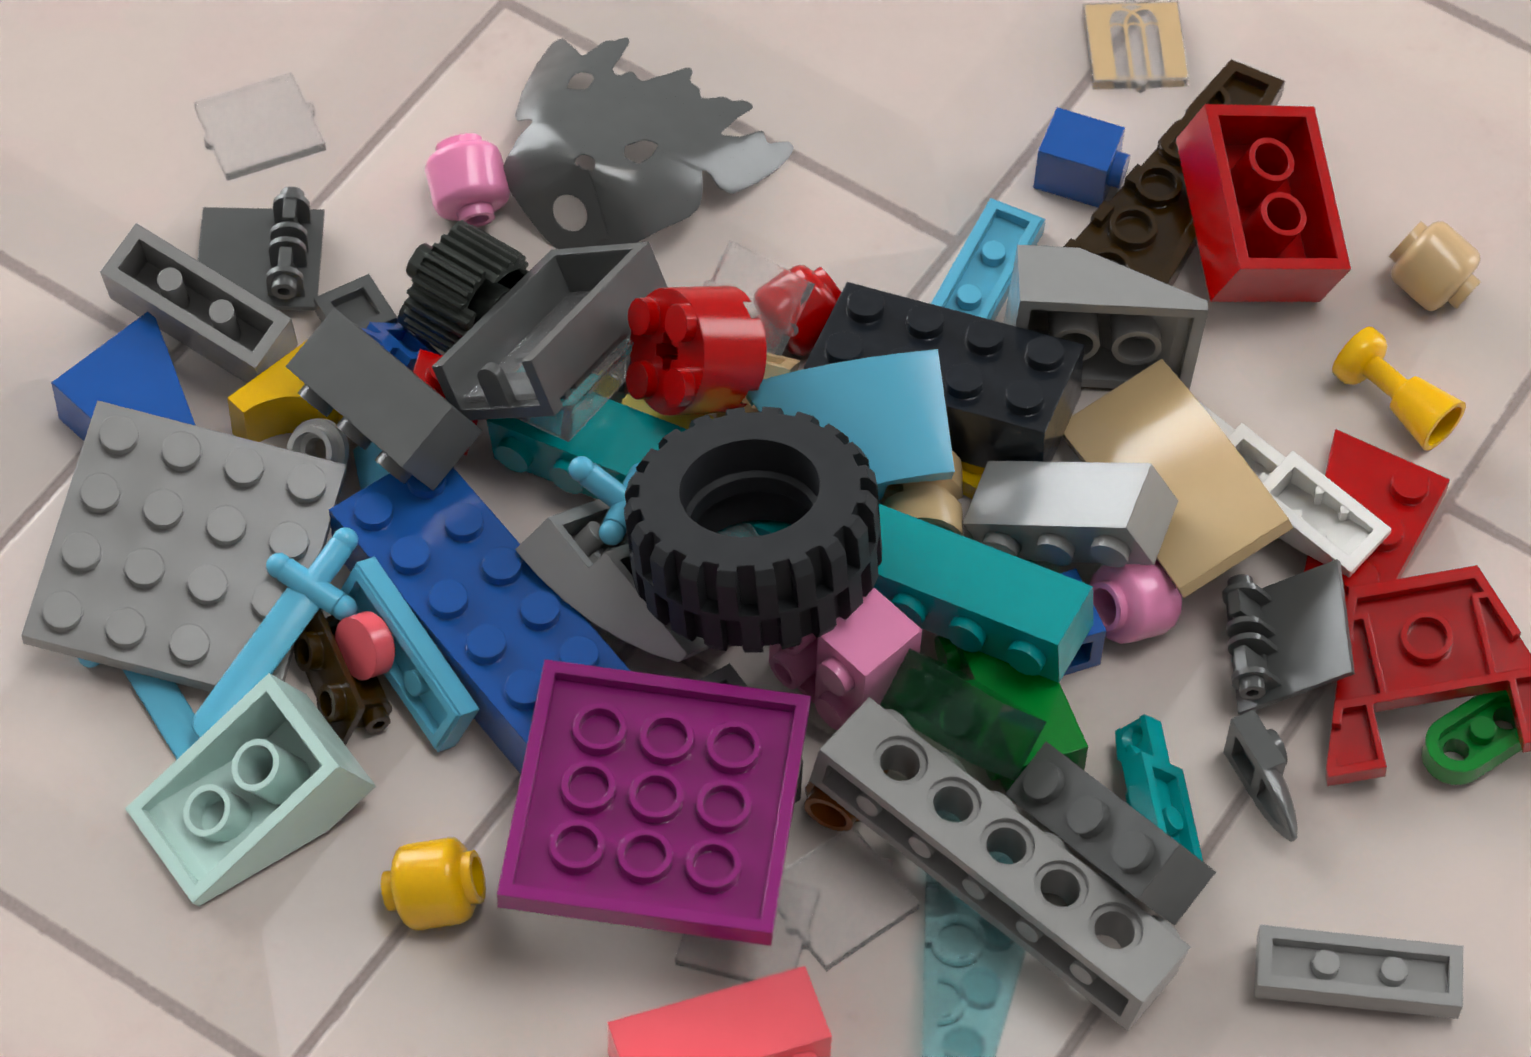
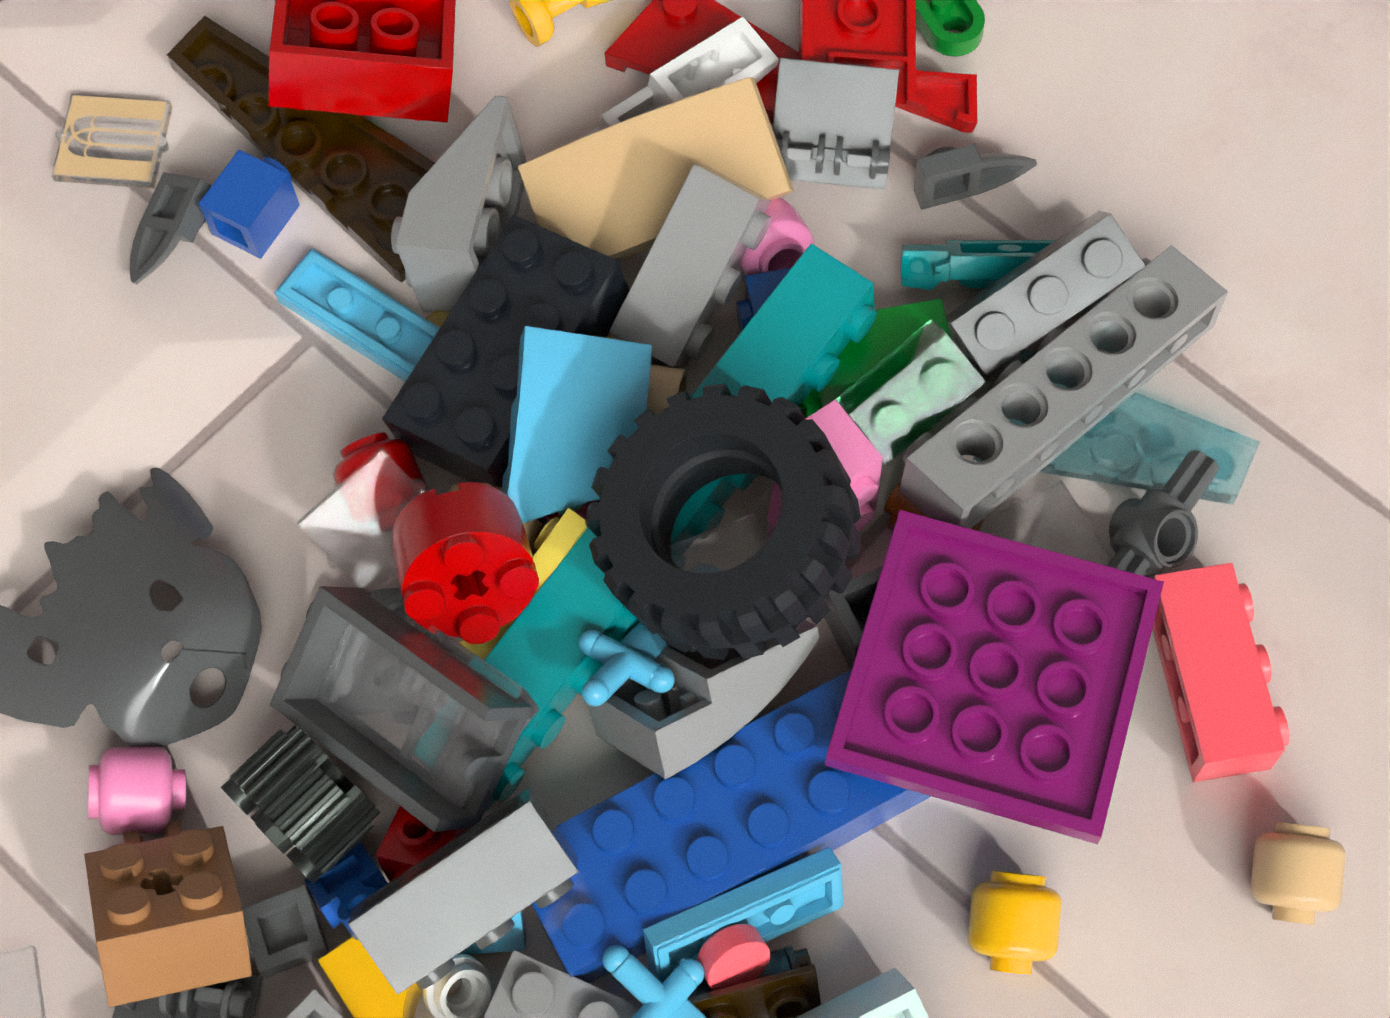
camera: 75 degrees left, 10 degrees up
(350, 209) = (166, 914): none -> medium nougat hinge
(887, 978) = (1160, 525): none -> dark grey axle
(1042, 96) = (169, 217): none -> dark grey plate
(1359, 971) = (1167, 140): light grey plate -> none

